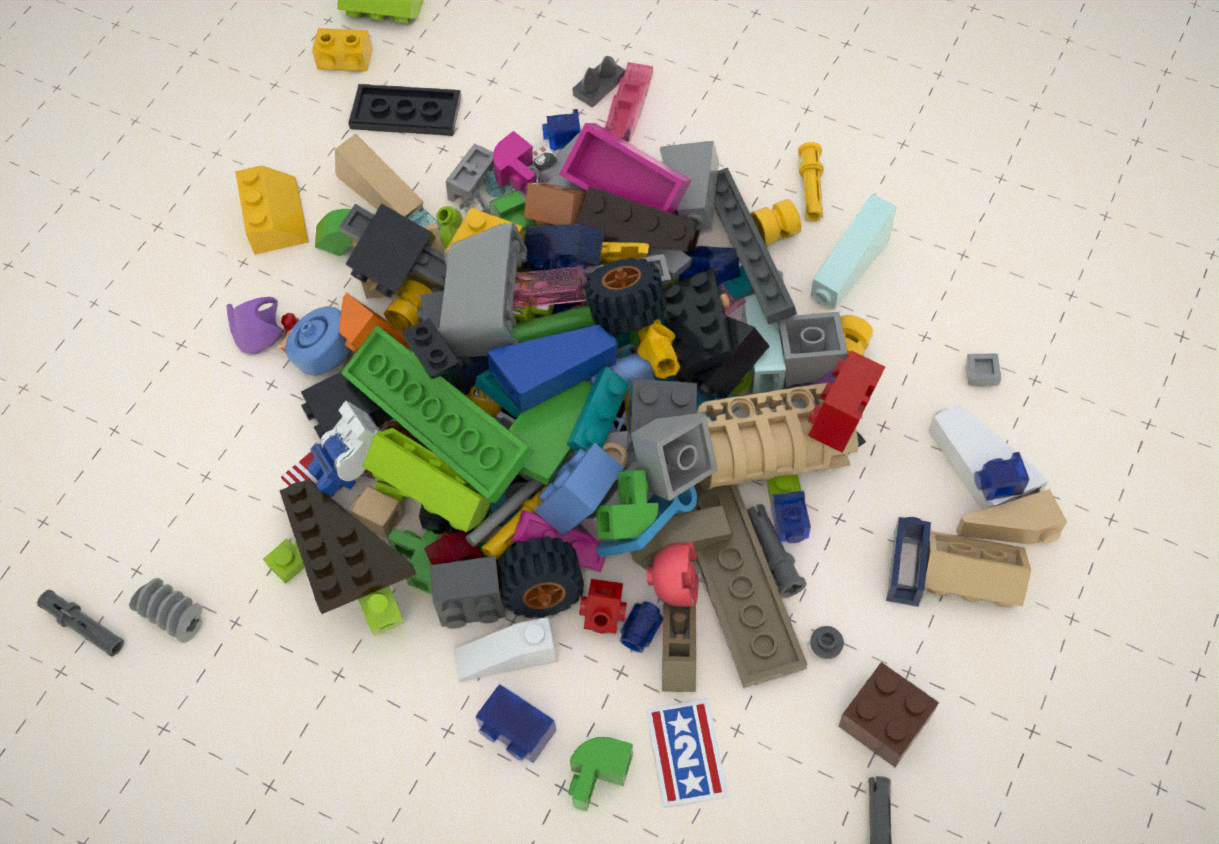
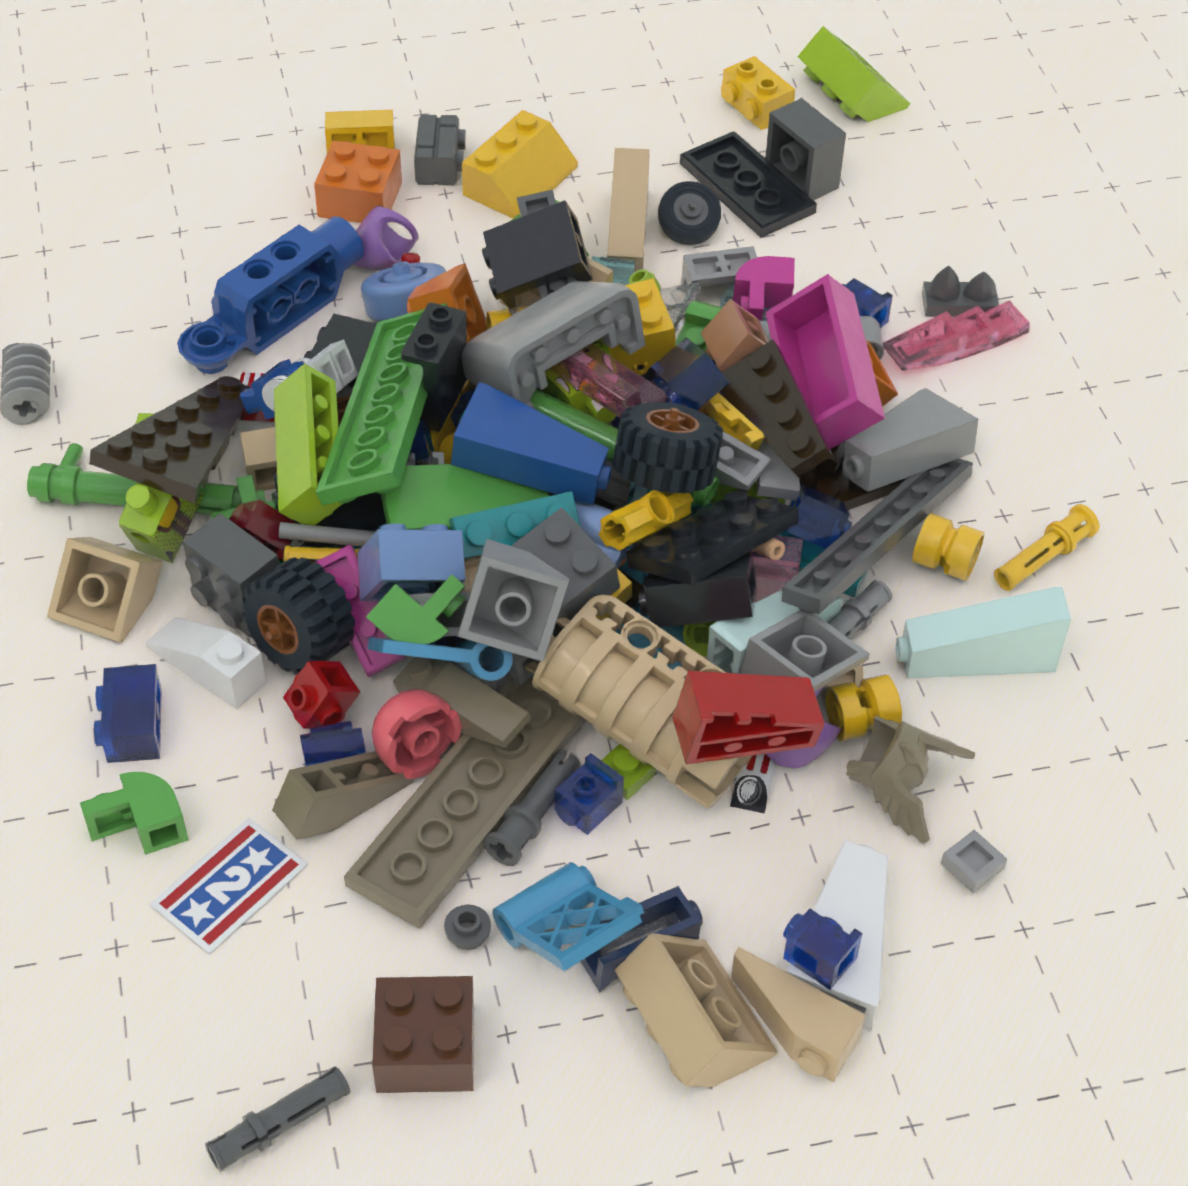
camera: 45 degrees right, 10 degrees down
(145, 270) = (360, 127): none -> yellow hinge
(191, 301) = (357, 180): none -> orange brick
(208, 239) = (438, 148): none -> dark grey brick
(245, 415) = (272, 293): none -> blue brick
(290, 637) = (73, 485): none -> bright green cylinder
(396, 675) = (103, 587): none -> tan slope
(405, 153) = (689, 213): none -> black wheel
(422, 60) = (806, 148): none -> dark grey brick
(852, 590) = (558, 904): none -> dark azure piece
(903, 357) = (896, 765): none -> dark tan helmet

